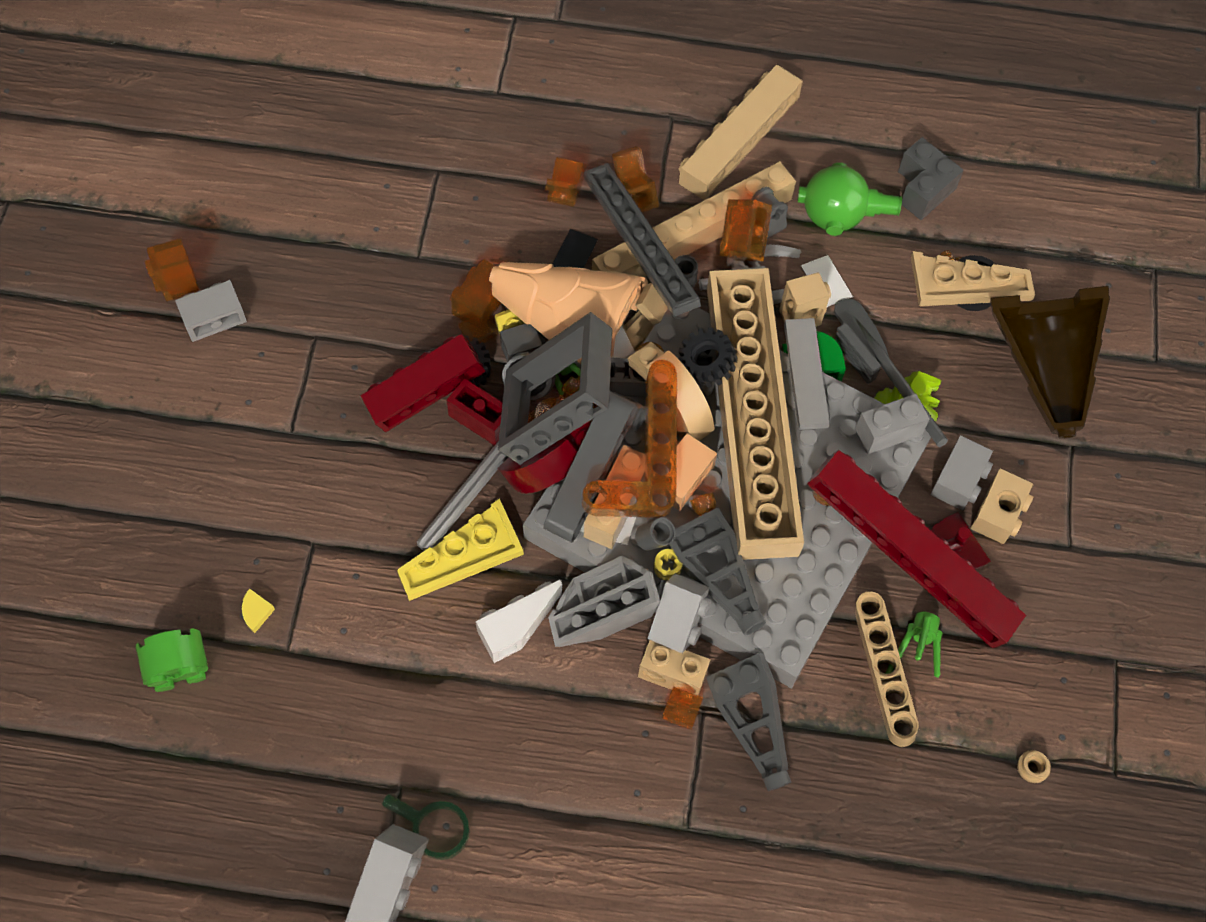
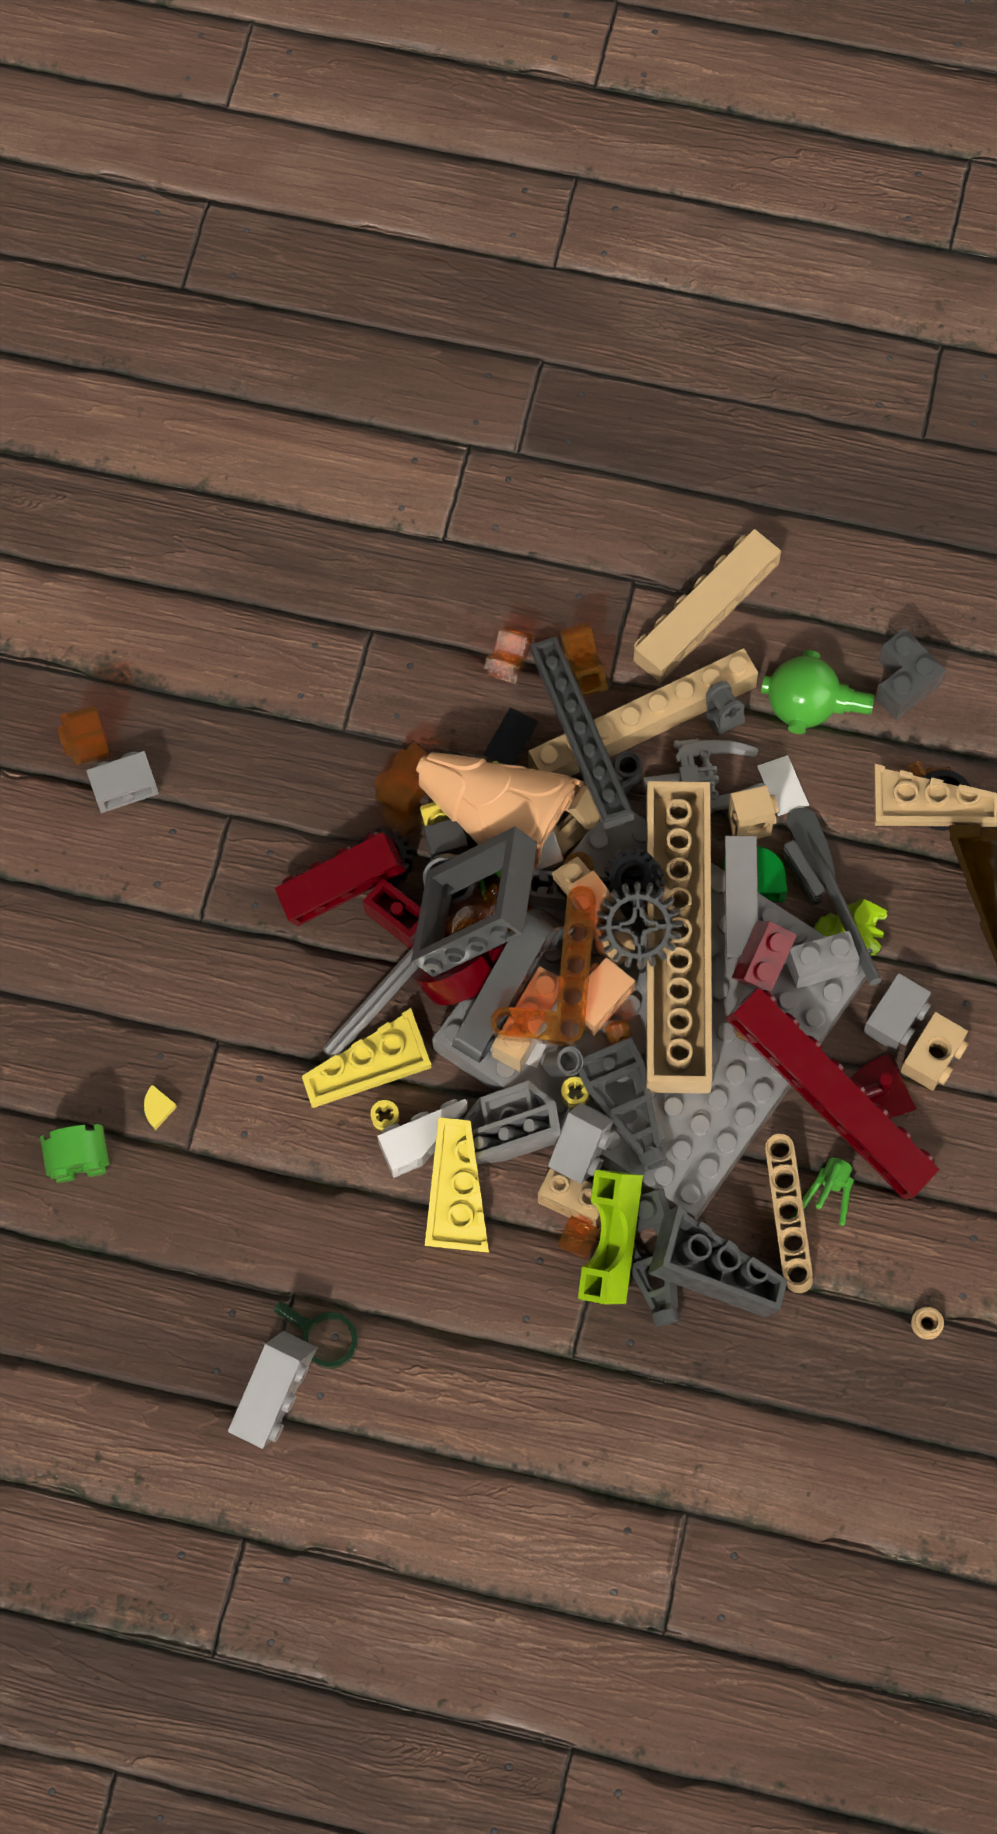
camera: 10 degrees right, 5 degrees up
(479, 593) = (384, 1105): none -> light yellow bush
(557, 677) = (455, 1193): none -> light yellow wing
(716, 739) = (608, 1272): none -> lime arch
(745, 230) = (695, 729): clear orange brick -> none
(745, 393) = (623, 925): none -> dark grey gear
(822, 725) = (707, 1264): none -> dark grey wedge
(837, 422) = (764, 956): none -> dark red brick

